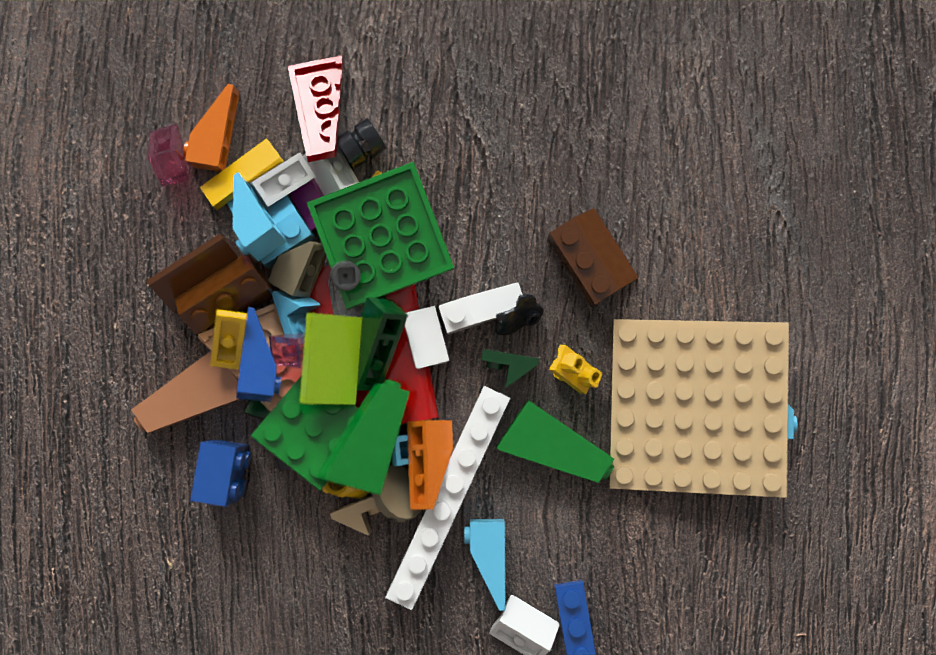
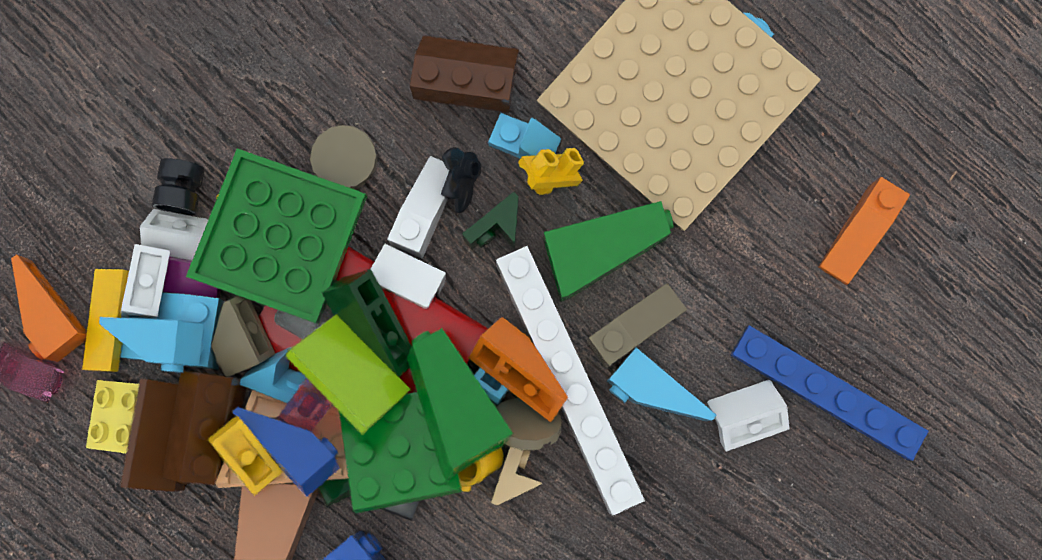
camera: 55 degrees left, 5 degrees down
(188, 232) = (112, 416): none -> light yellow hinge
(317, 101) = (105, 192): wing -> none
(345, 275) = (283, 295): dark grey tile -> none
(469, 228) = (344, 156): none -> dark tan tile
(521, 509) = (636, 325): none -> dark tan slope
(580, 332) = (522, 138): none -> medium azure slope
(711, 606) = (864, 229): none -> orange slope

